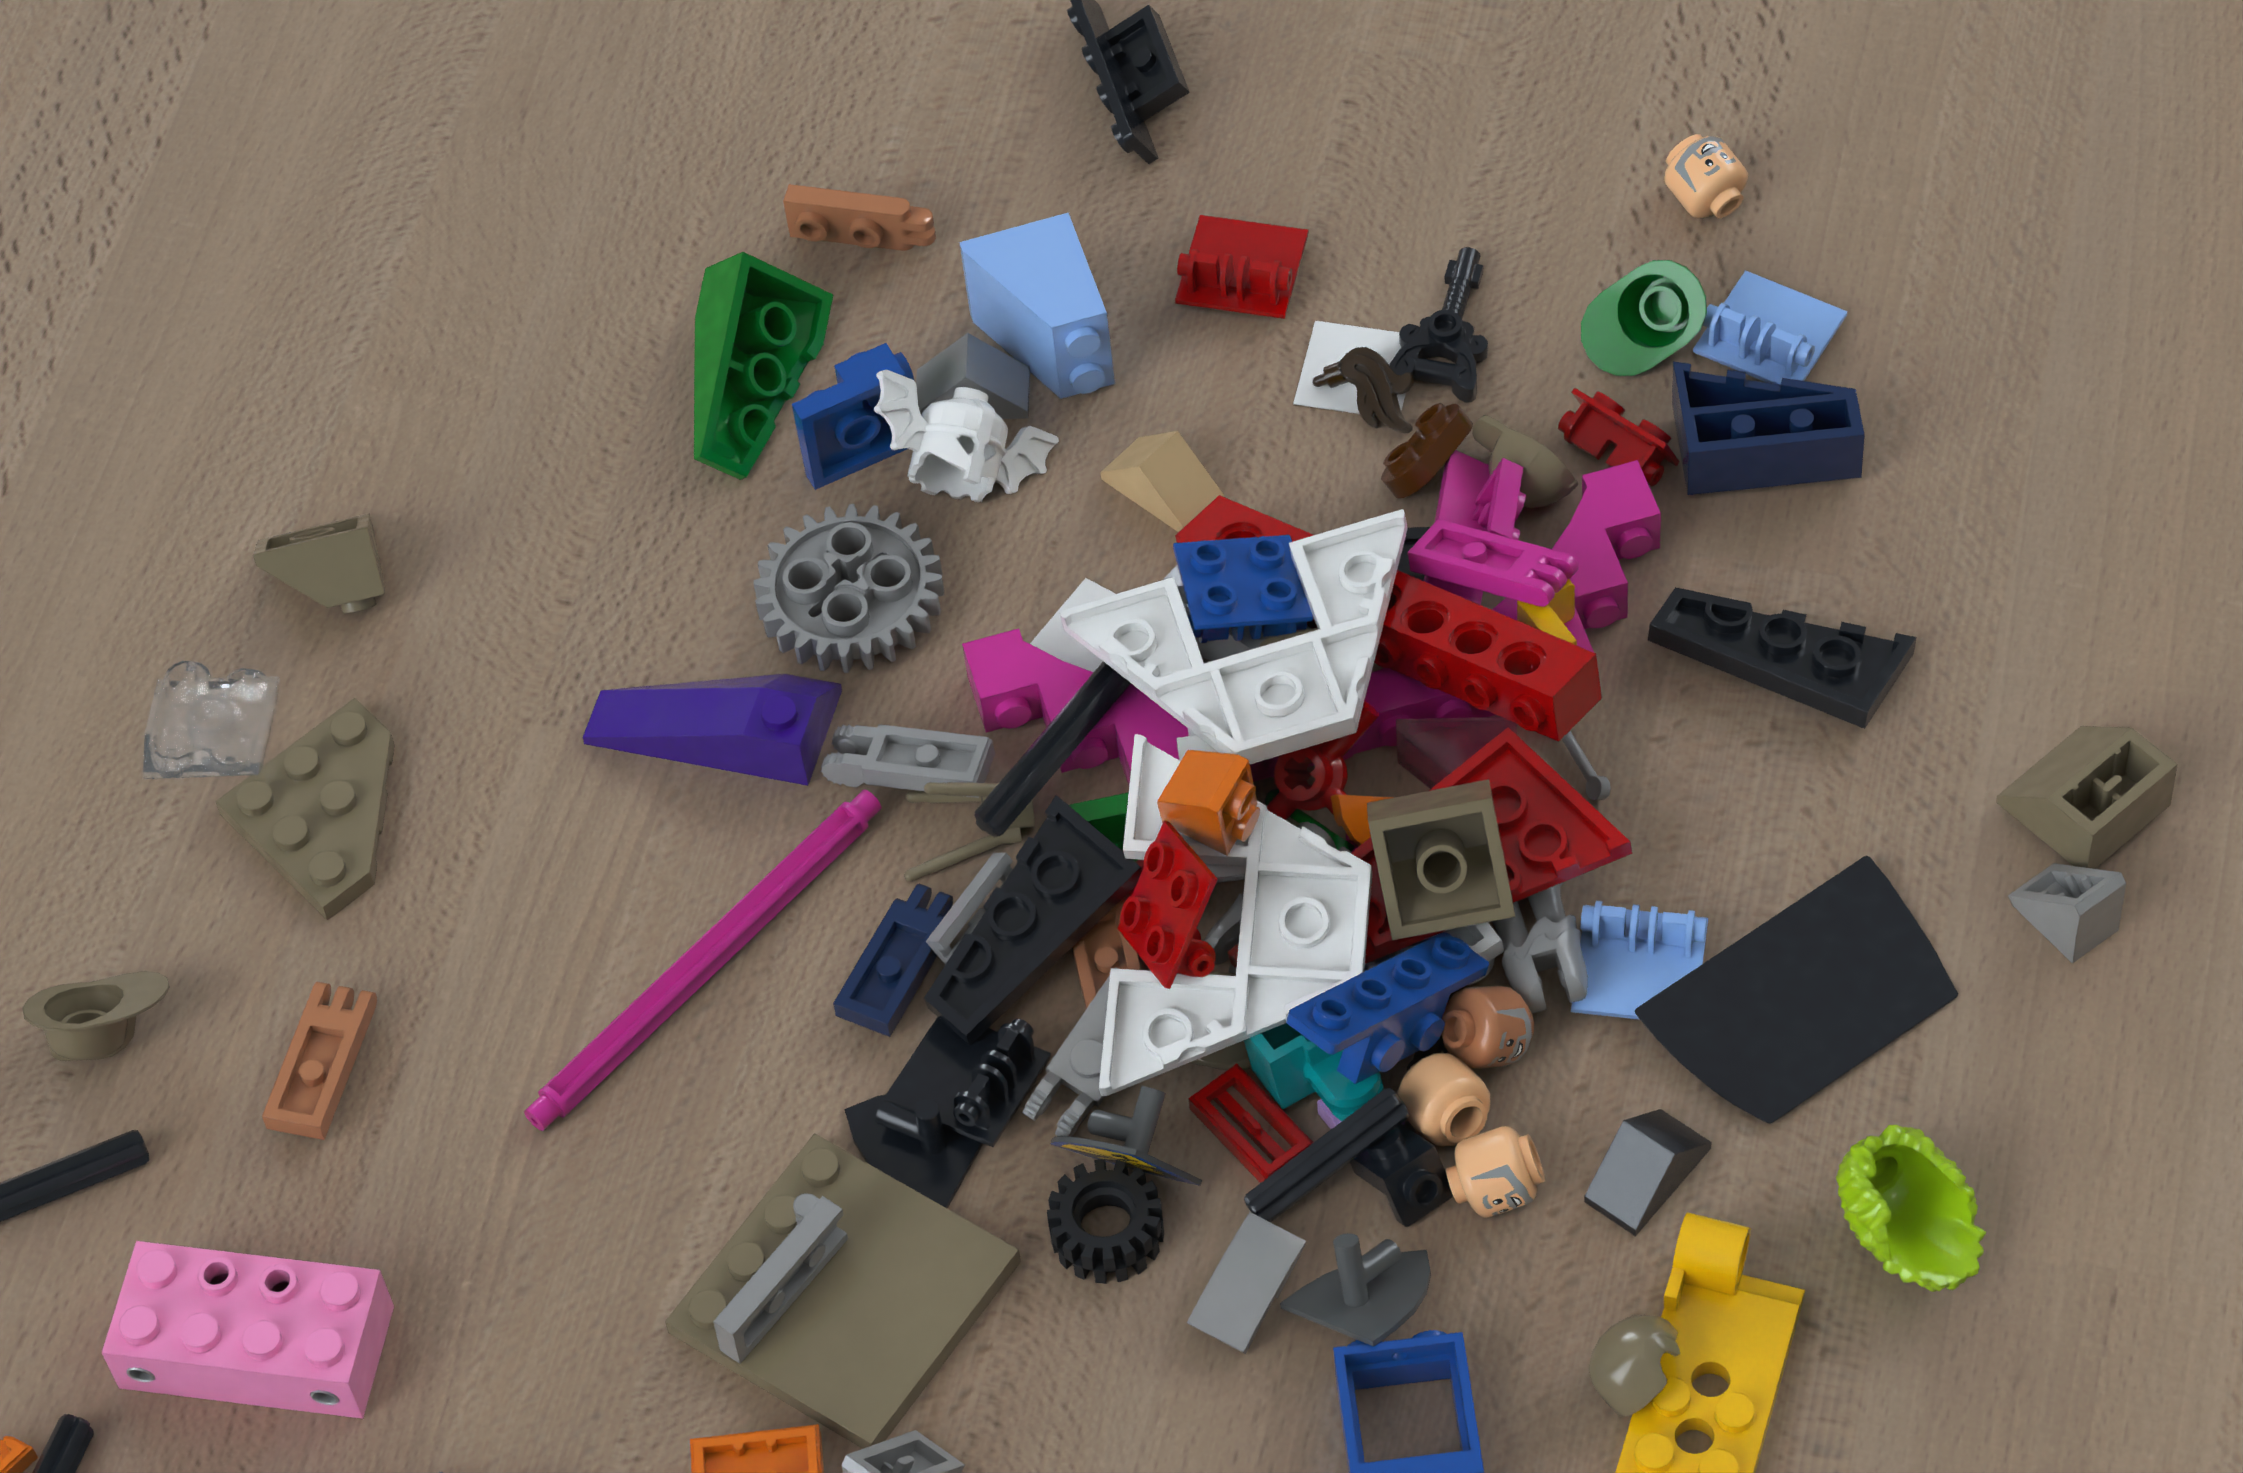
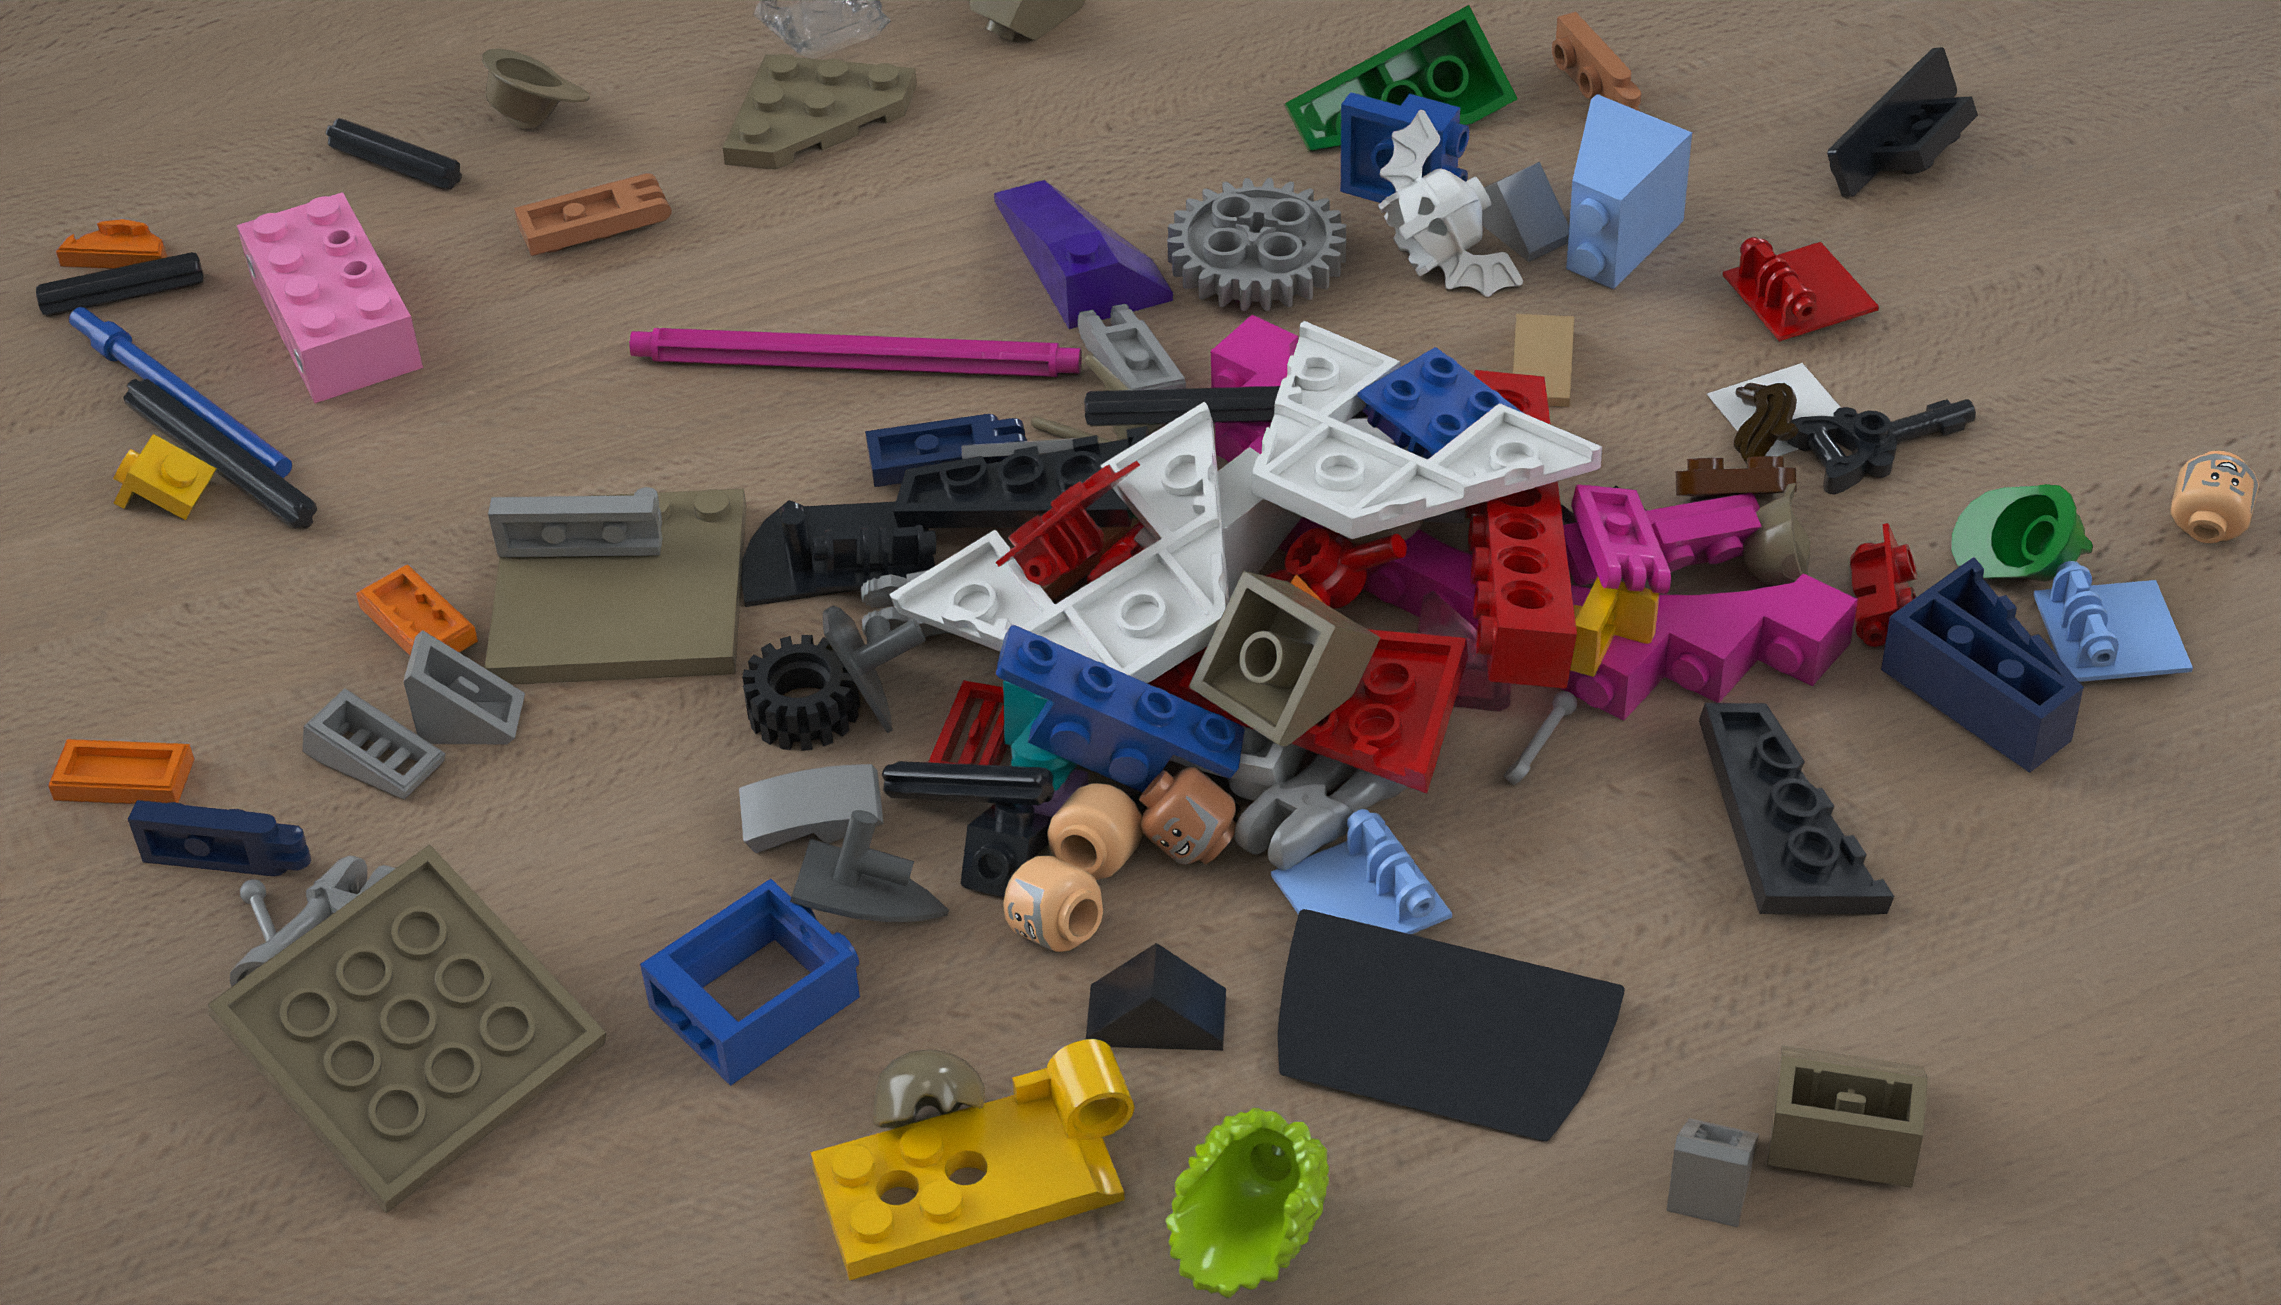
camera: 50 degrees right, 10 degrees down
(1211, 799) = (1169, 470): orange slope -> none

